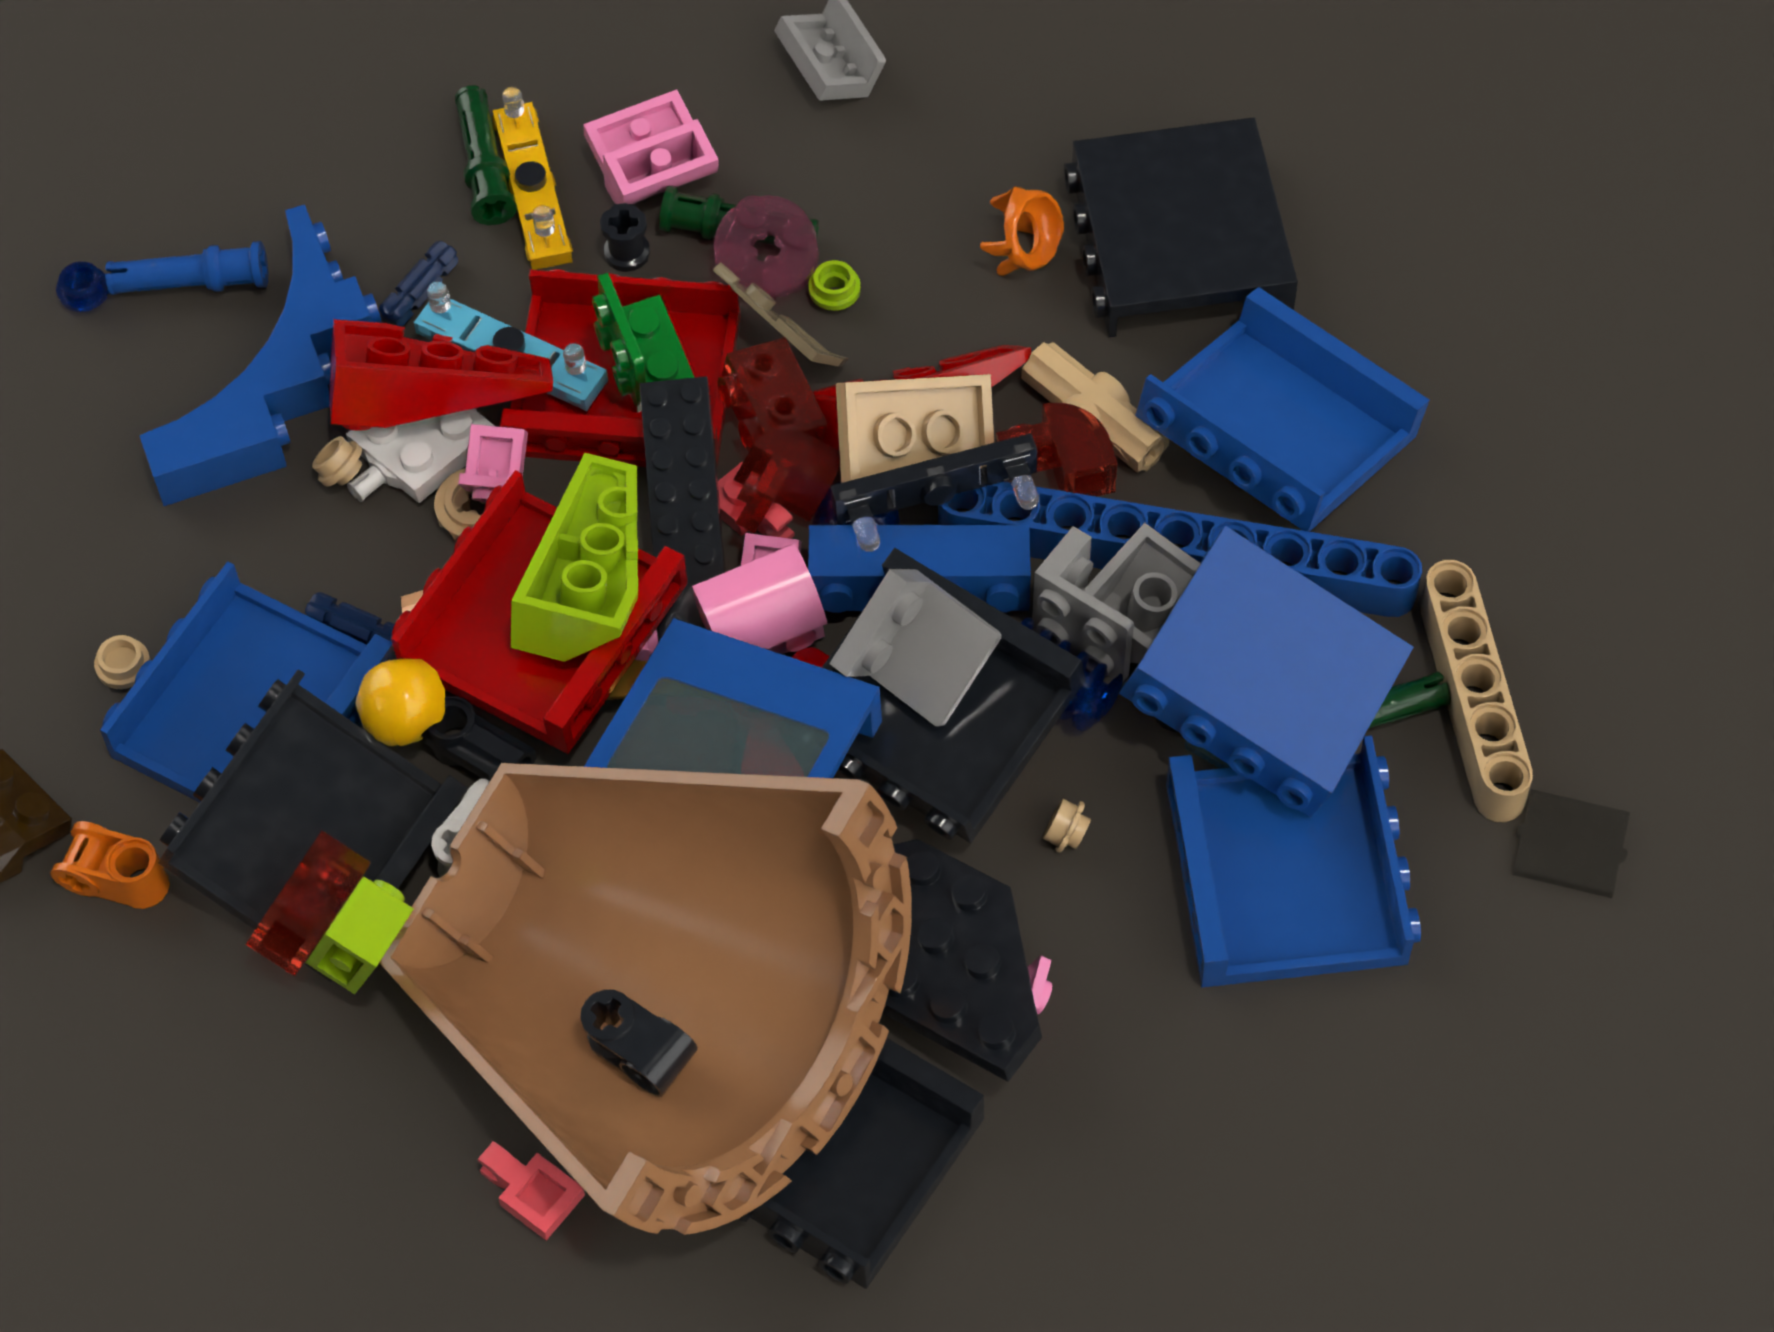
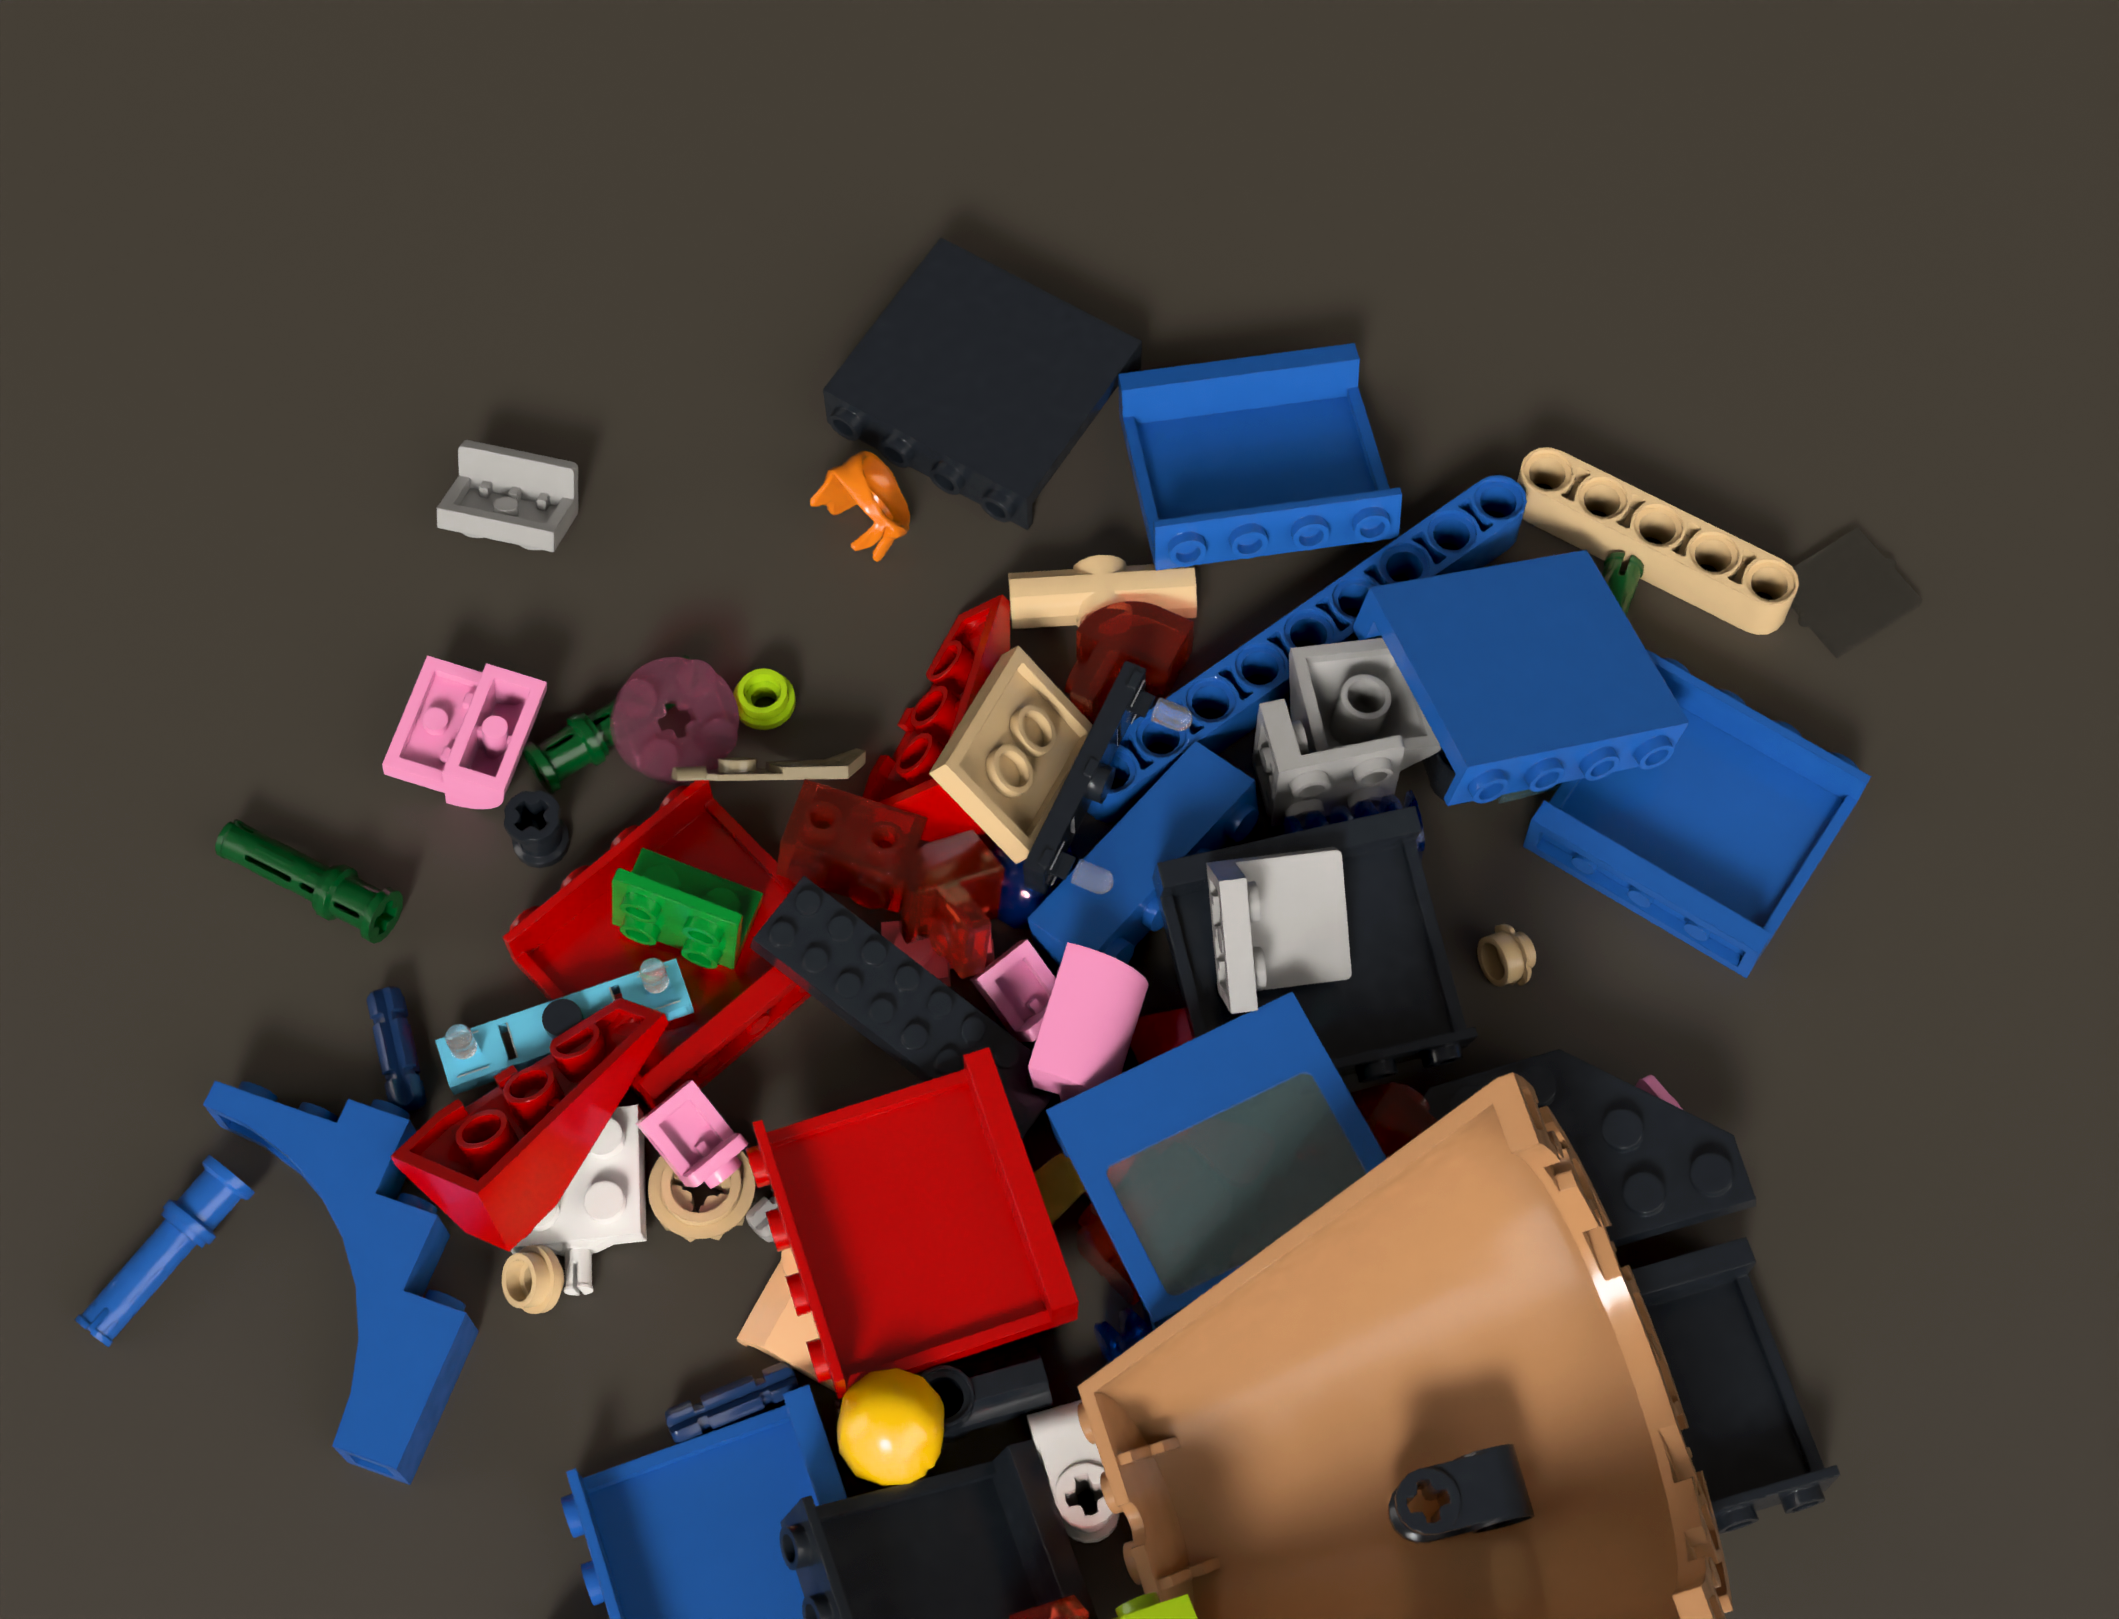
camera: 50 degrees left, 5 degrees up
(78, 277) = (62, 1356): clear blue plate -> none
(531, 182) = (384, 862): yellow piece -> none
(584, 567) = (929, 1153): lime wedge -> none

